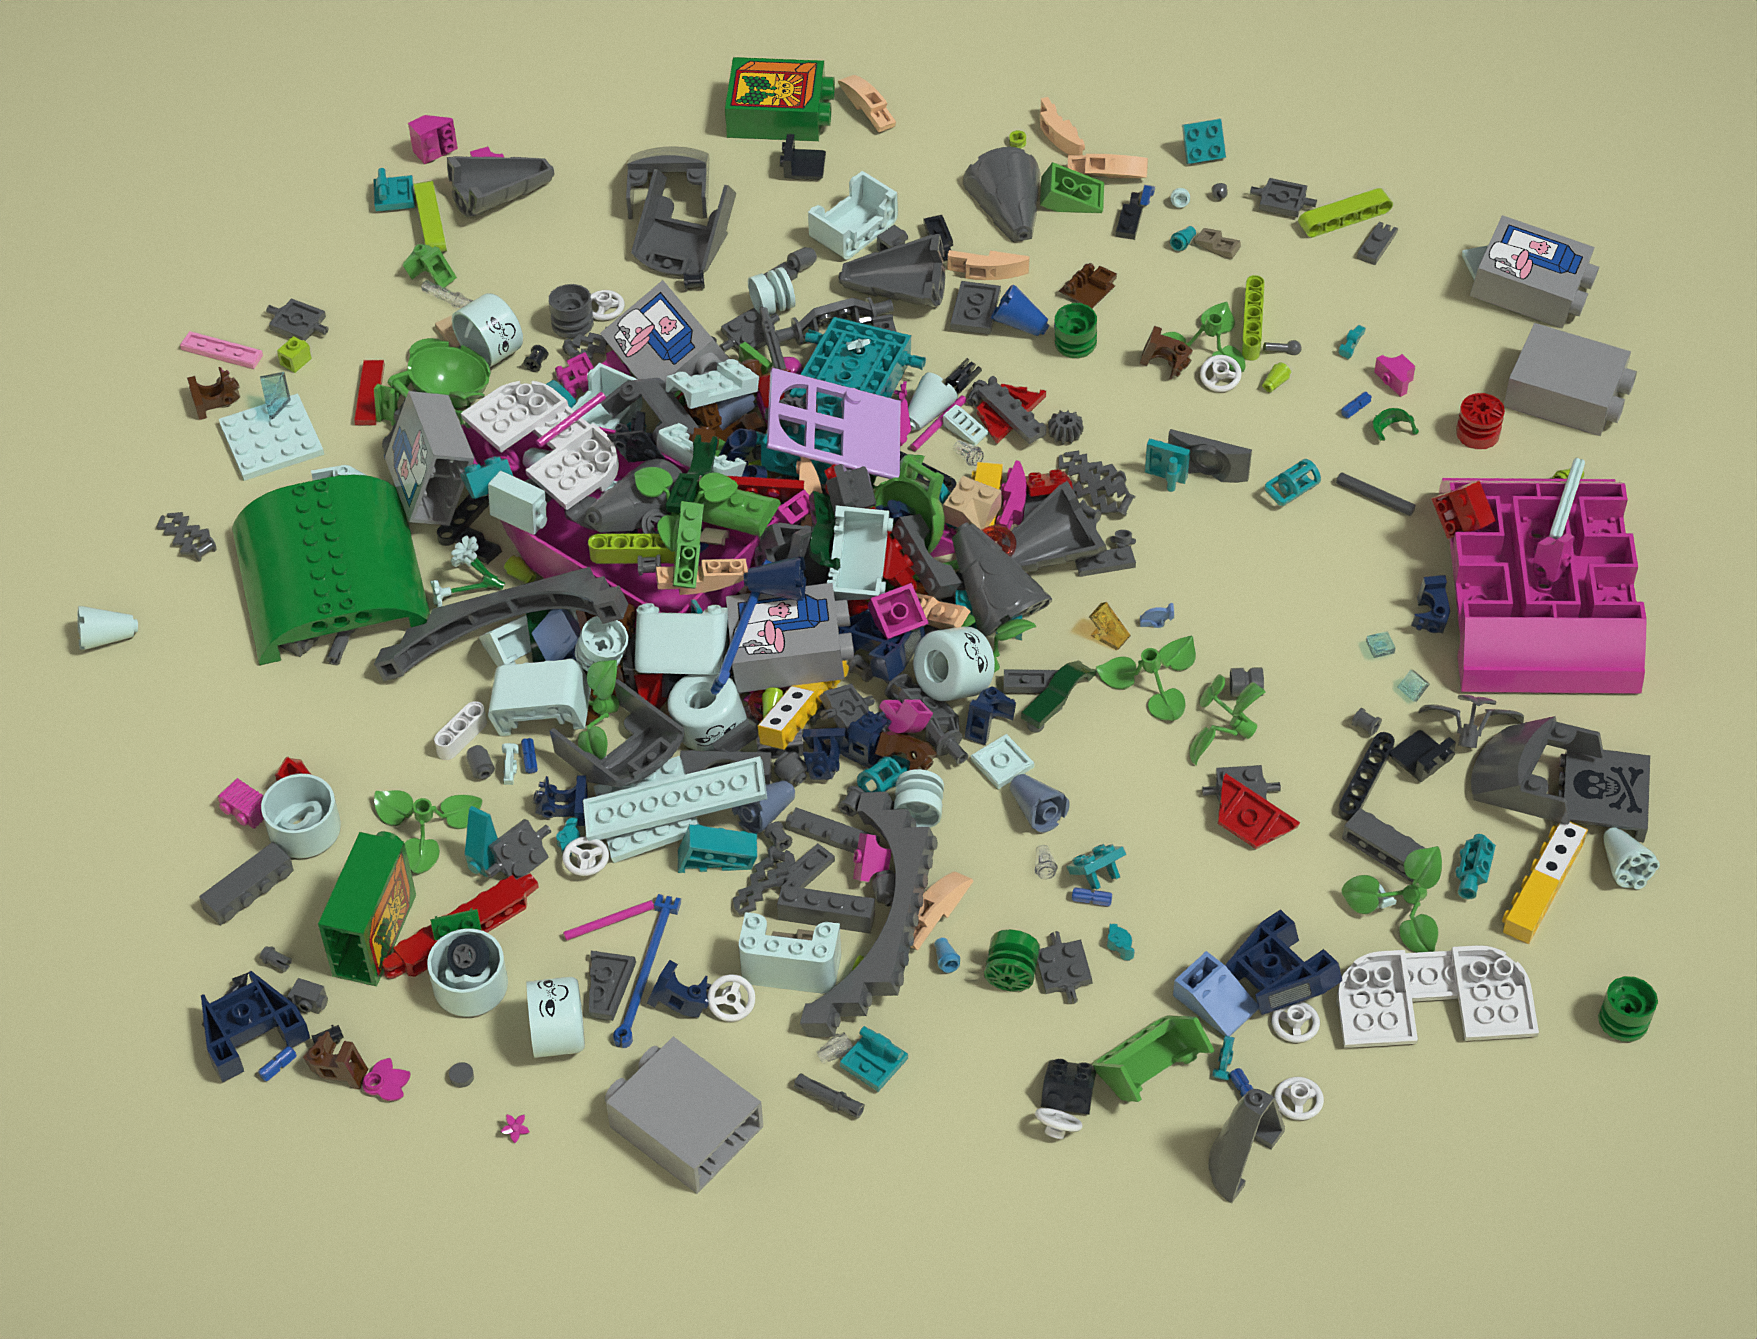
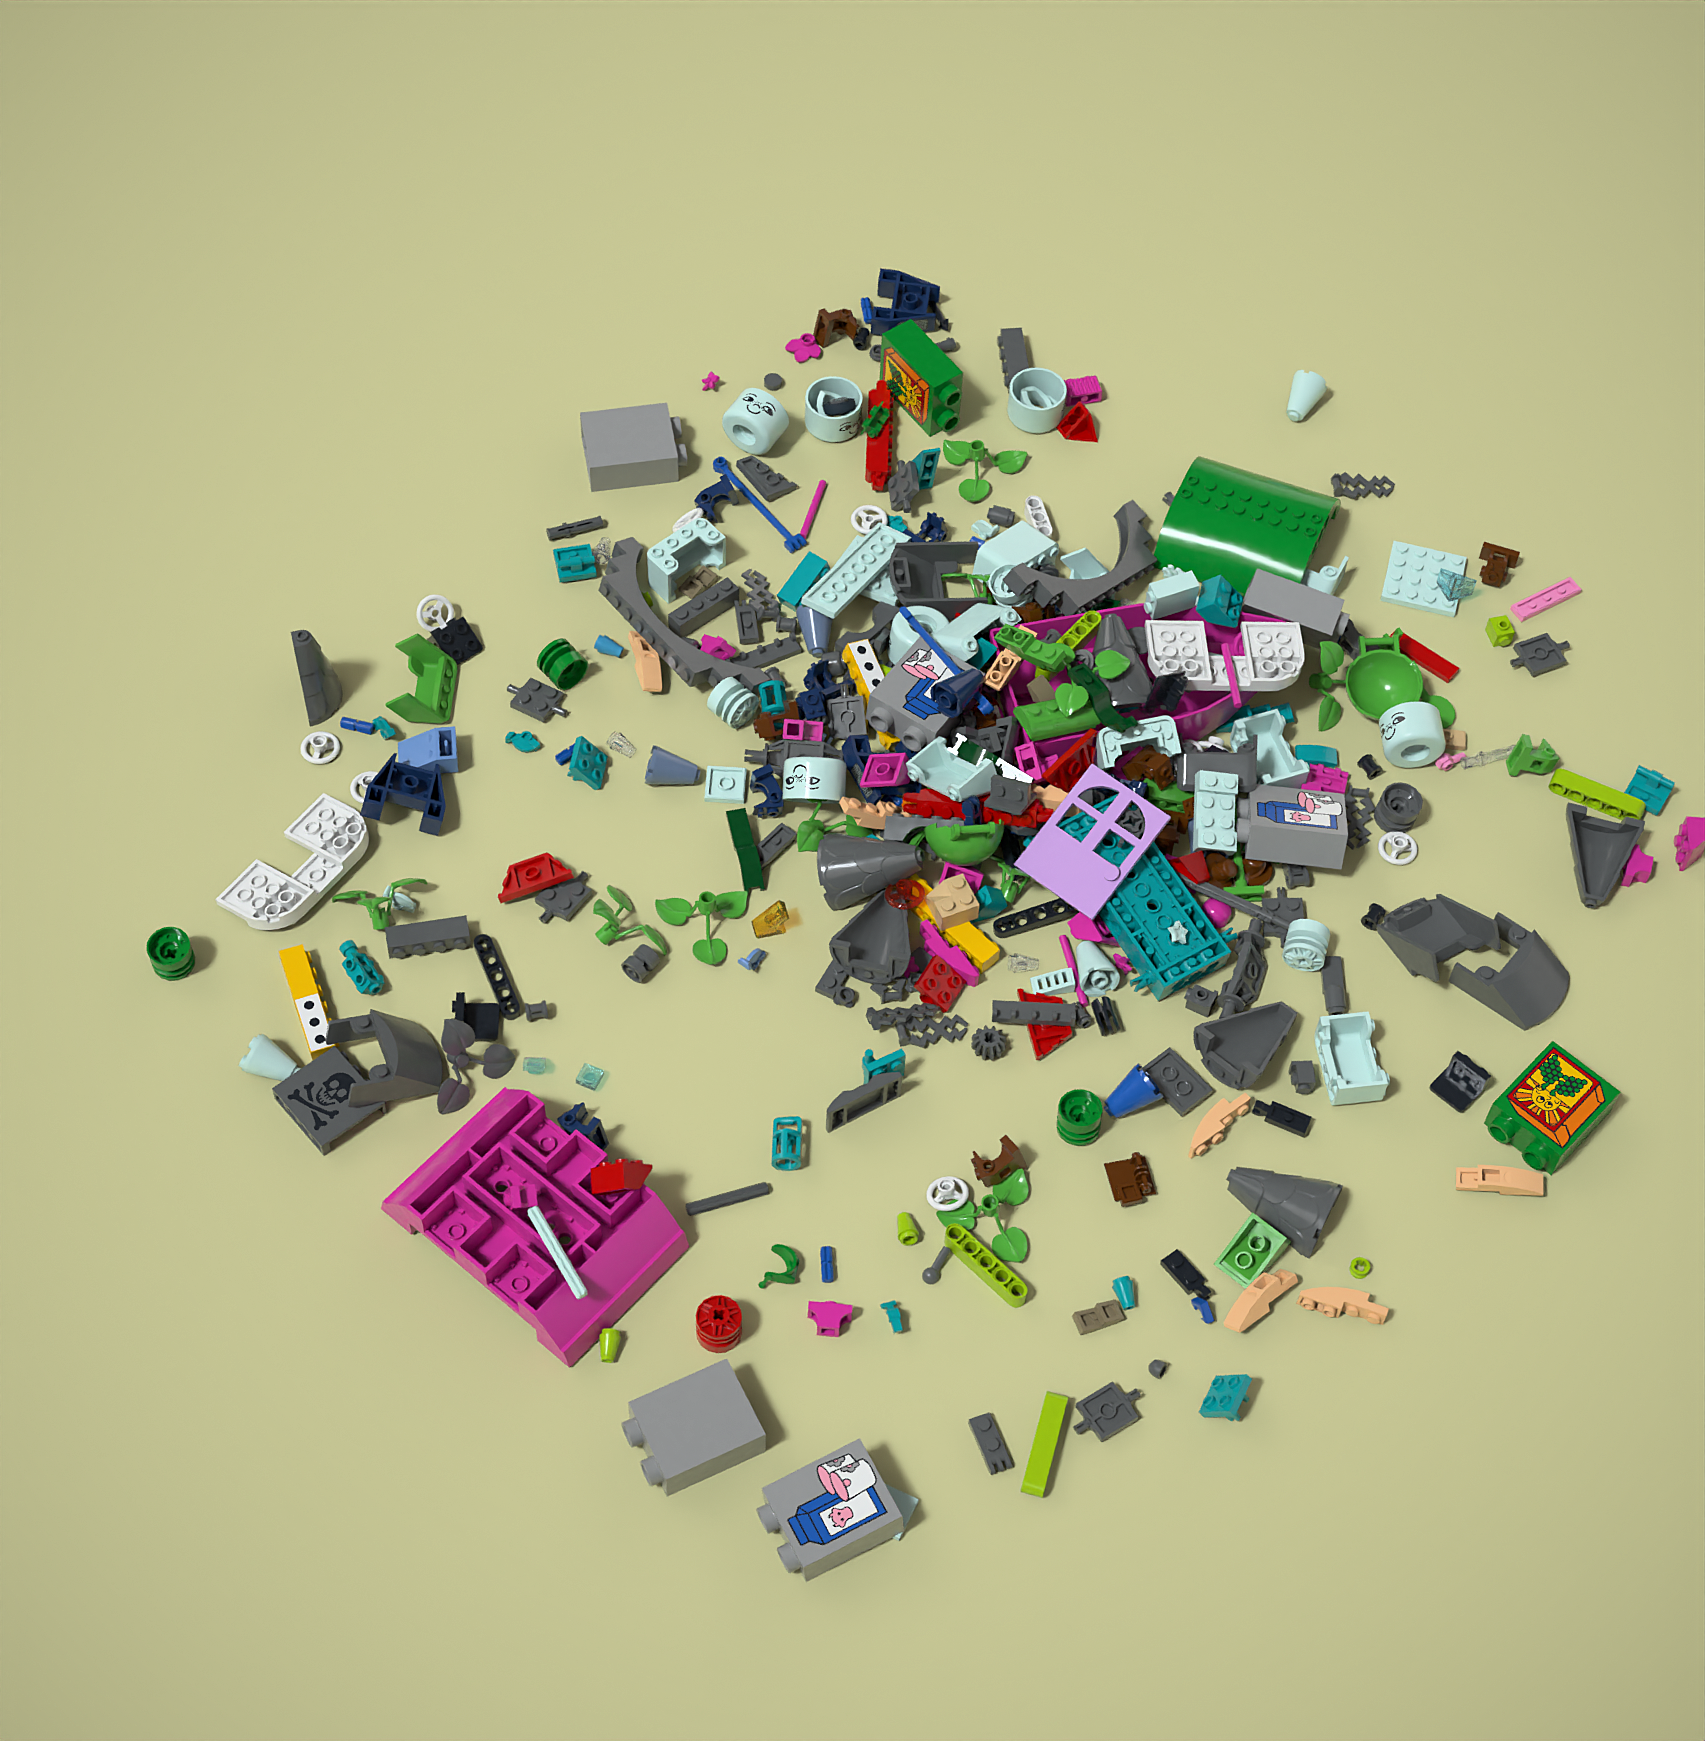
camera: 125 degrees right, 5 degrees up
(336, 1004) = (875, 352): none -> dark grey plate
(1180, 197) = (1176, 1330): light aqua plate -> none

